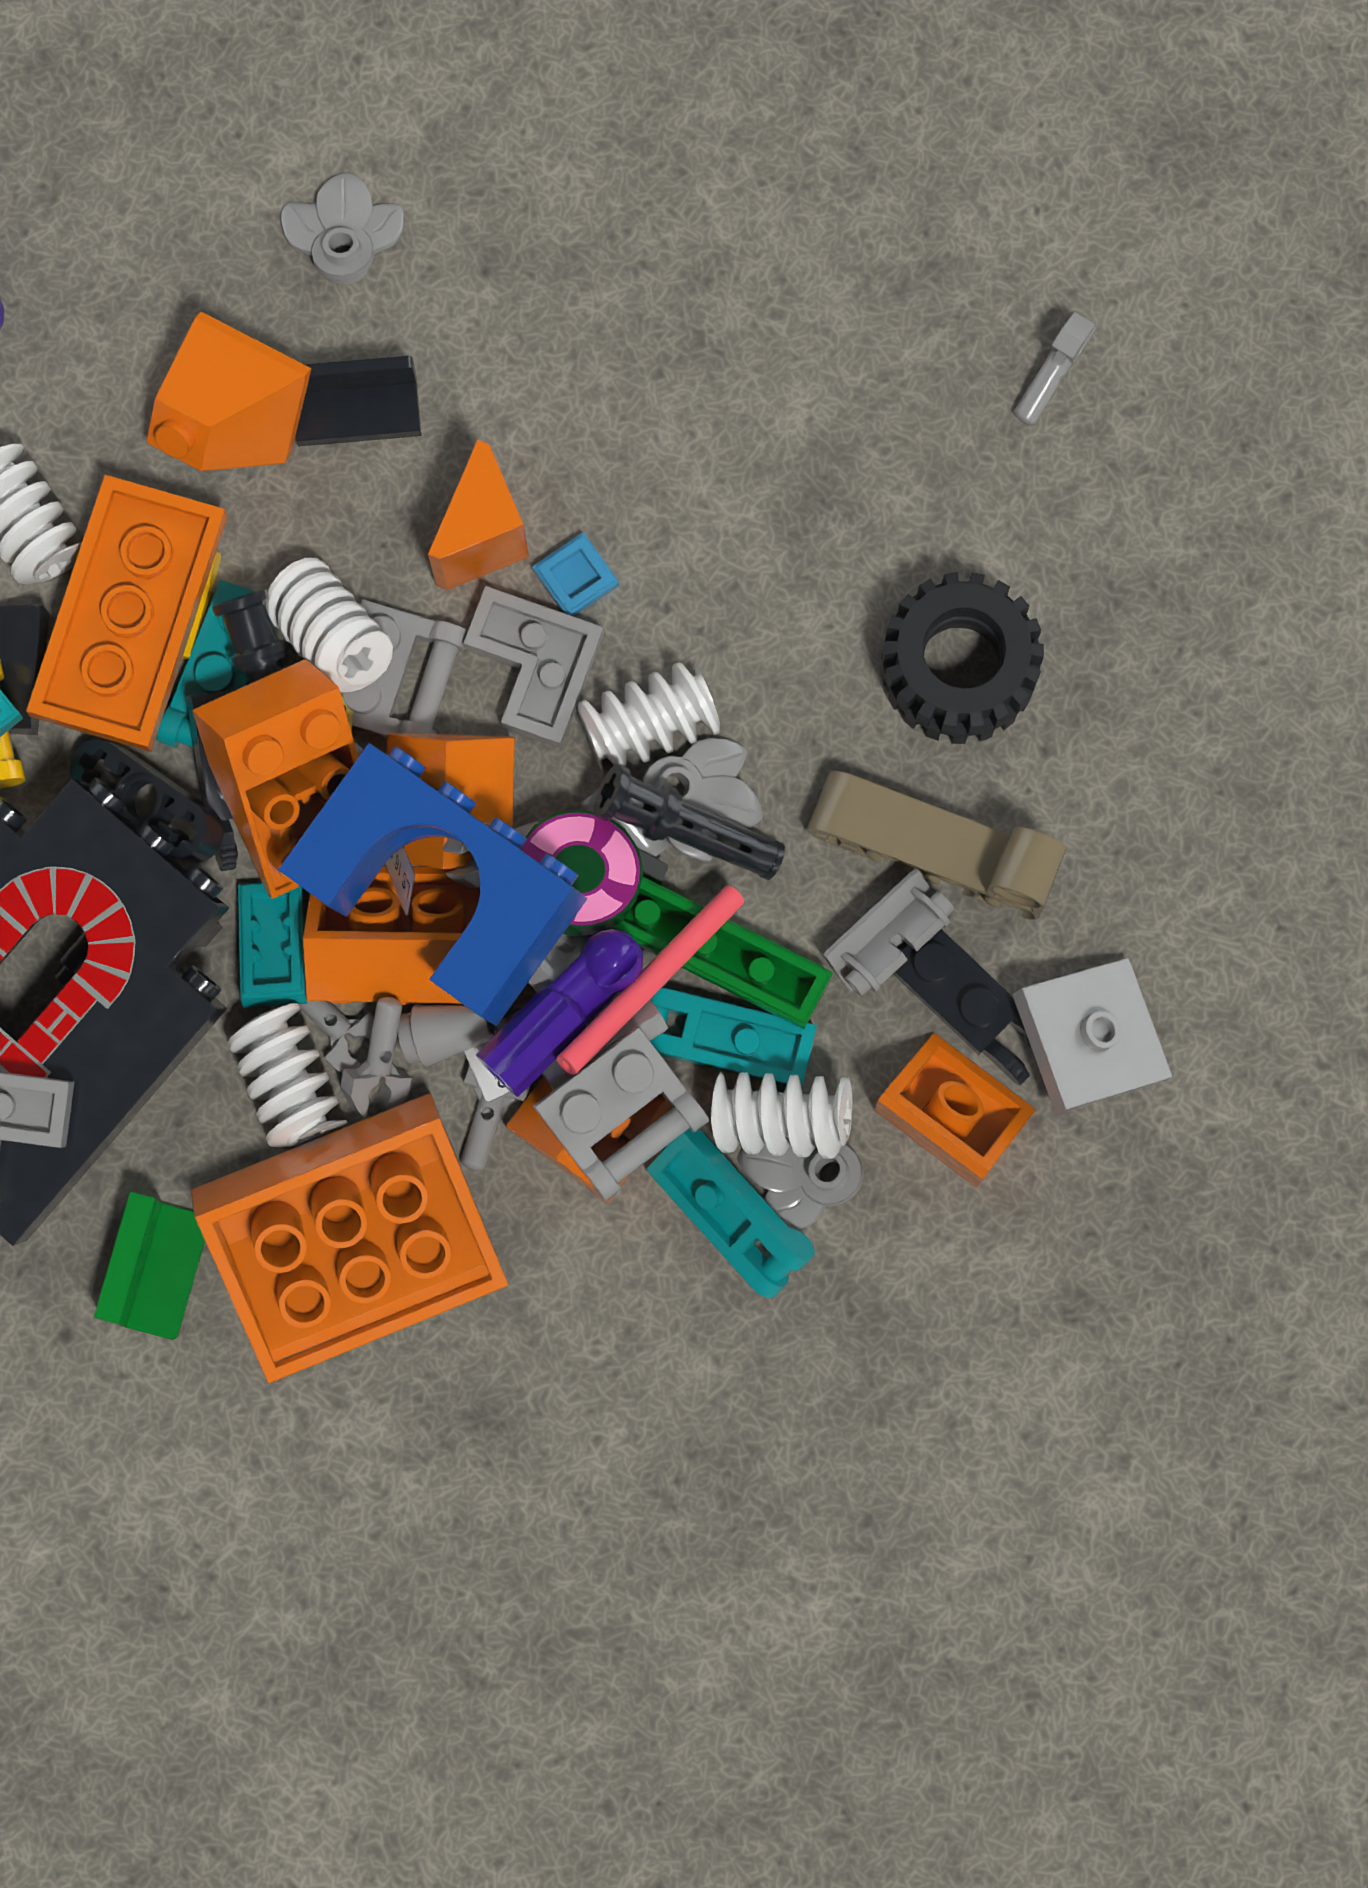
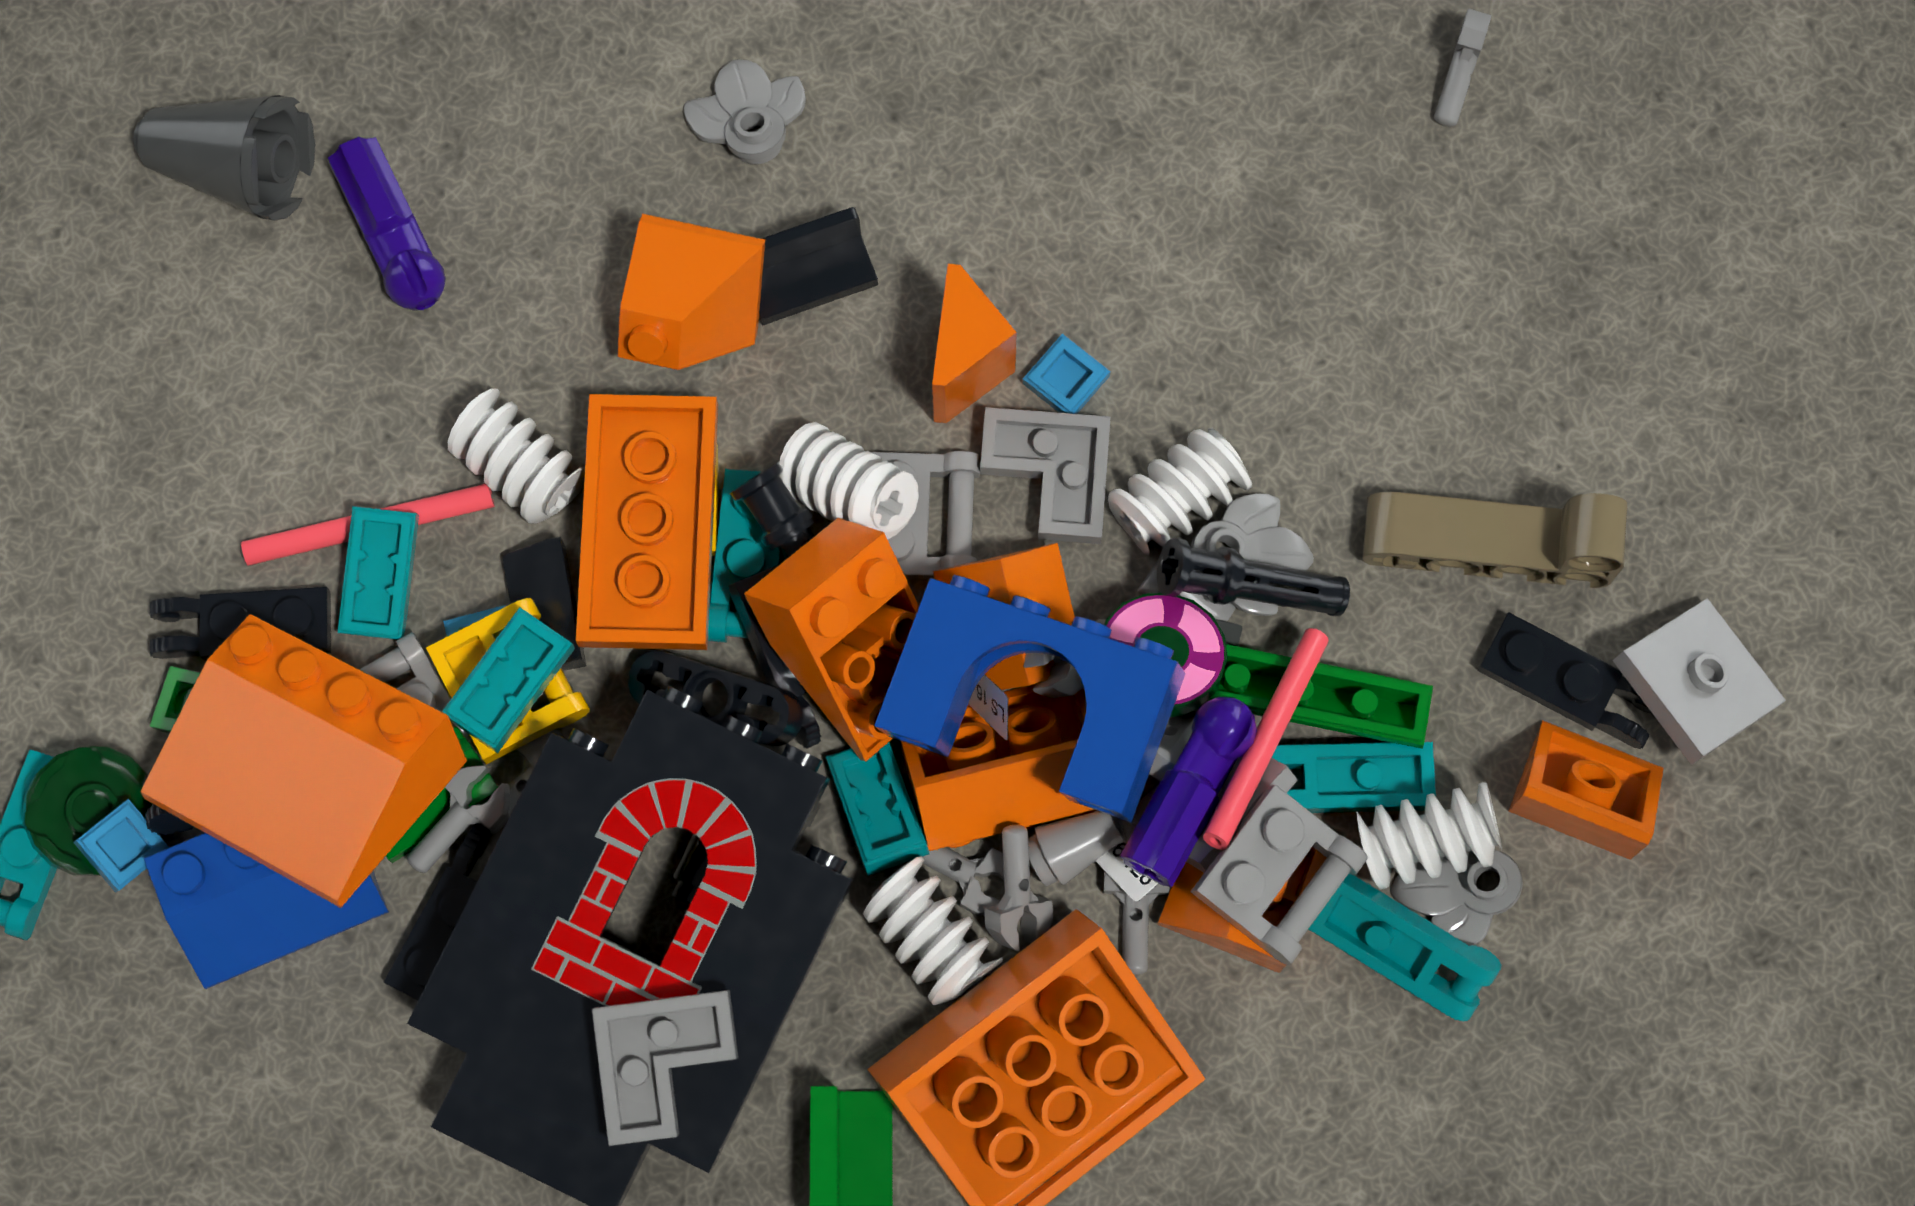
camera: 15 degrees left, 5 degrees down
(870, 949) = (1459, 658): light grey hinge -> none
(949, 708) = (1474, 308): black tyre -> none

